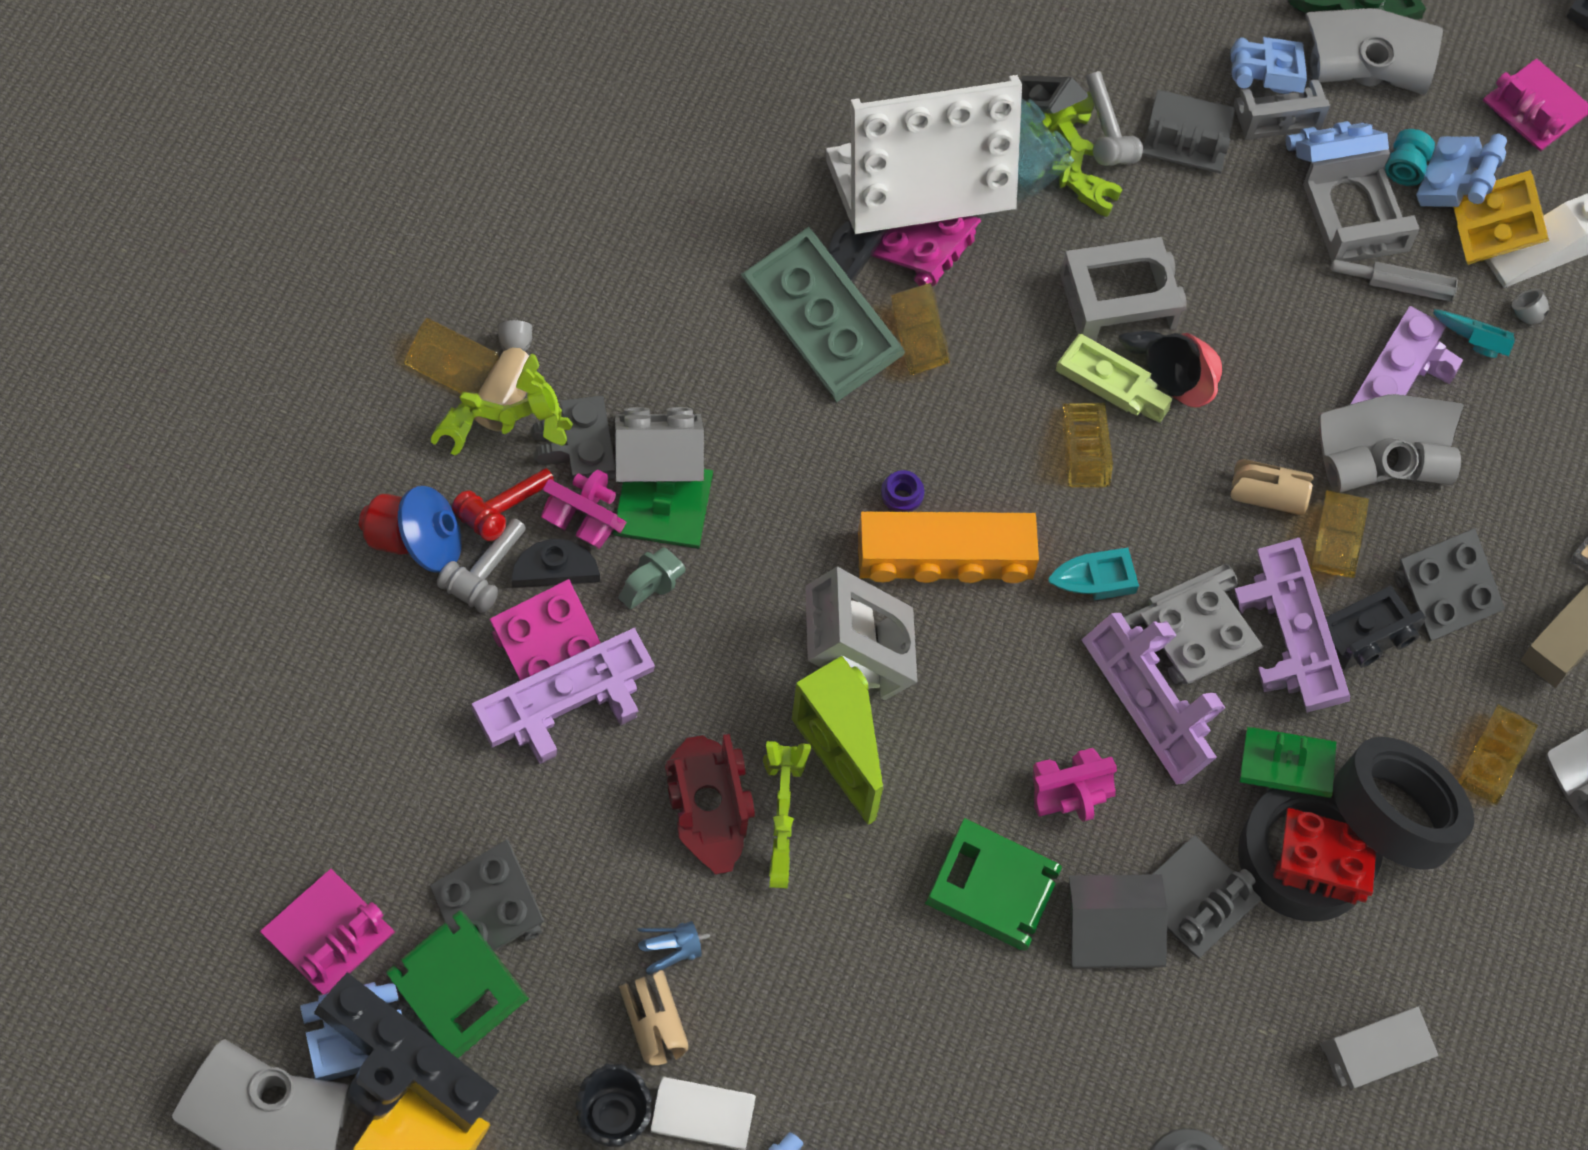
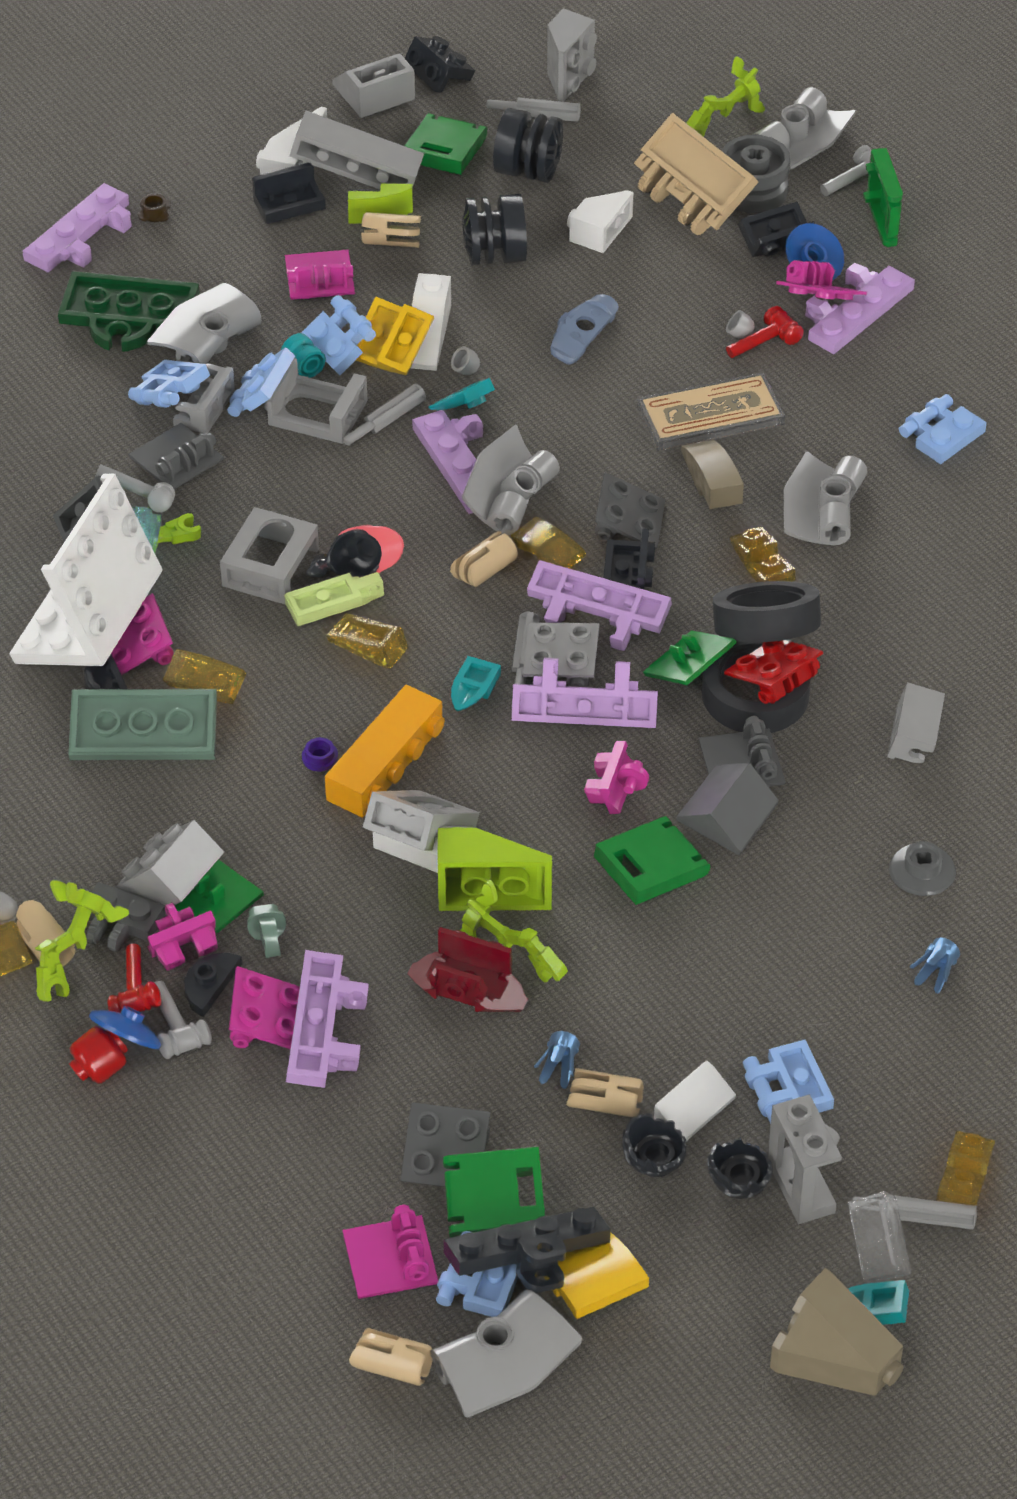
camera: 50 degrees left, 15 degrees down
(203, 1014) = (392, 1356): none -> tan arm

